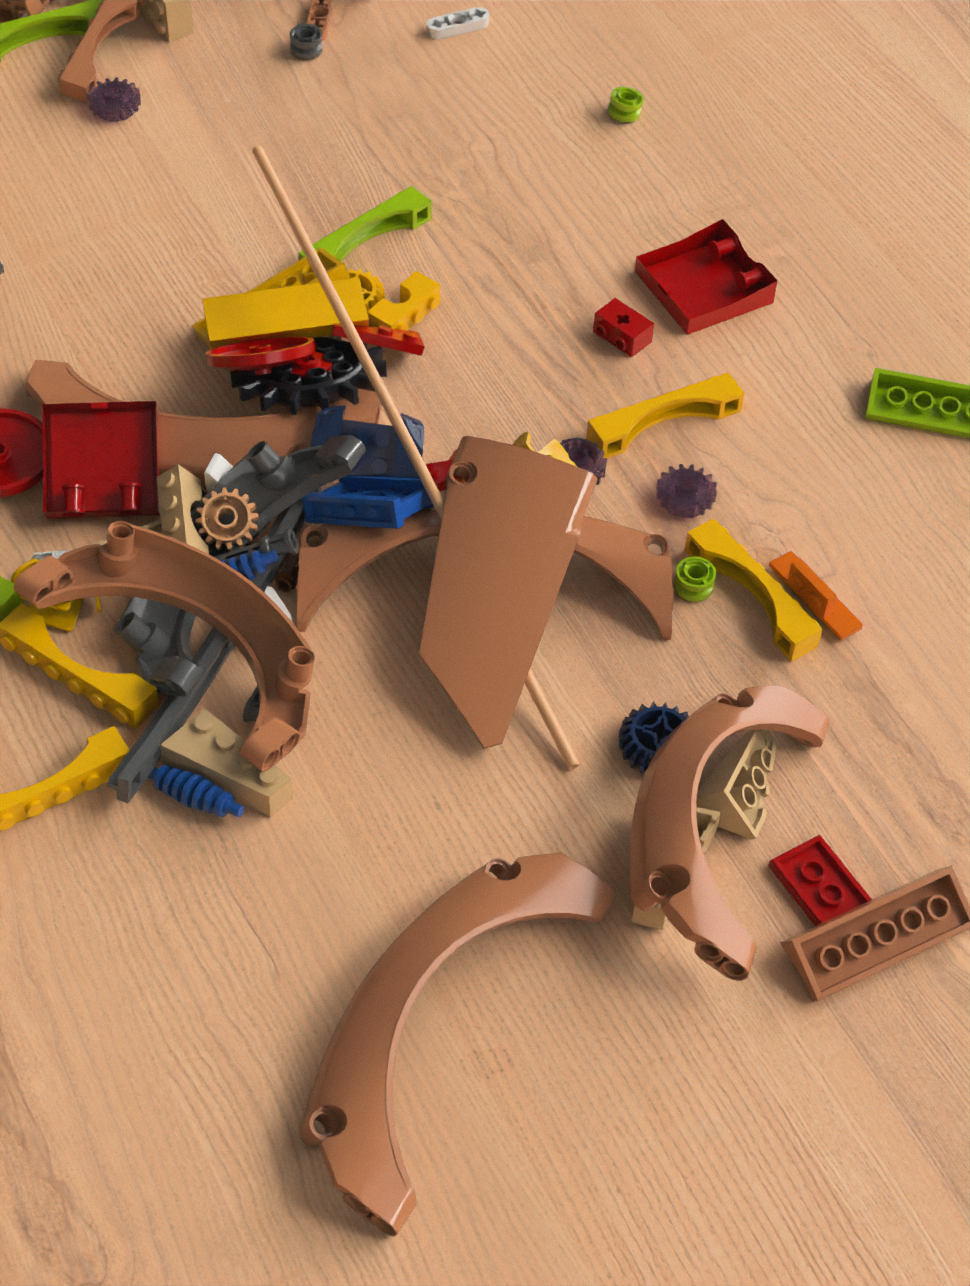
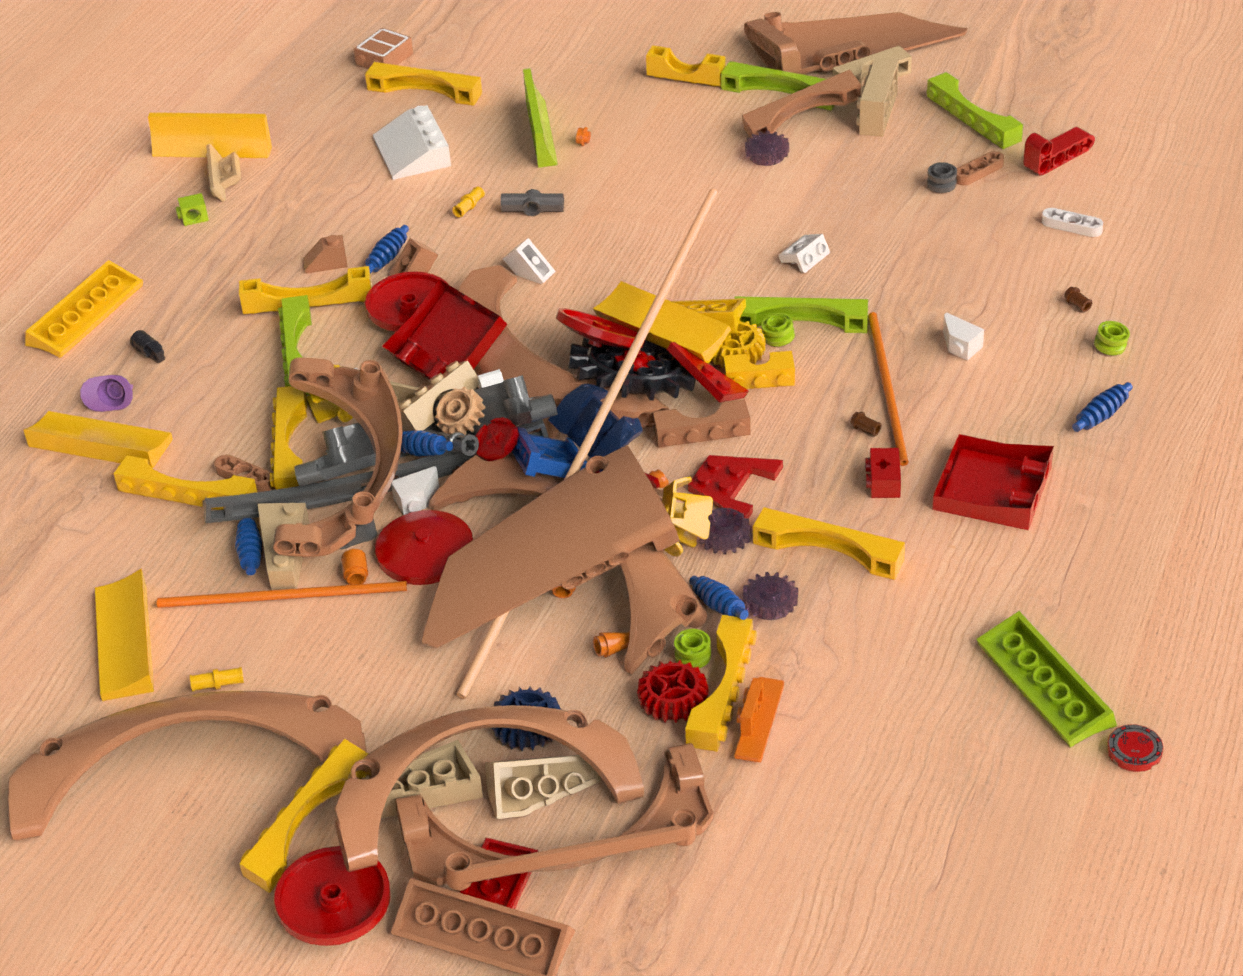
camera: 55 degrees right, 10 degrees down
(51, 729) = (228, 465): none -> nougat beam
(52, 341) = (529, 263): none -> white slope
(203, 970) = (124, 638): none -> yellow arch
(283, 815) = (282, 594): none -> orange piece
(289, 173) = (806, 251): none -> white bracket
(307, 516) = (497, 439): none -> red tile
(323, 733) = (354, 566): none -> orange brick
(353, 932) = (216, 679): none -> yellow pin
(355, 668) = (419, 545): none -> red dish
(367, 256) = (778, 329): none -> lime wheel
(444, 366) = (674, 428): none -> nougat arch
(504, 419) = (726, 475): none -> red wing
(515, 174) = (962, 337): none -> white slope
(519, 256) = (888, 389): none -> orange piece
(547, 296) = (865, 423): none -> reddish brown pin
(554, 87) = (1074, 296): none -> reddish brown pin
(627, 626) = (610, 643): none -> orange cone
(648, 1031) = (269, 856): none -> yellow arch
(658, 521) = (718, 597): none -> blue piece
(695, 166) = (1102, 407): none -> blue piece
(727, 631) = (678, 690): none -> red gear
(747, 1023) = (327, 903): none -> red dish
(887, 743) = (674, 817): none -> nougat panel

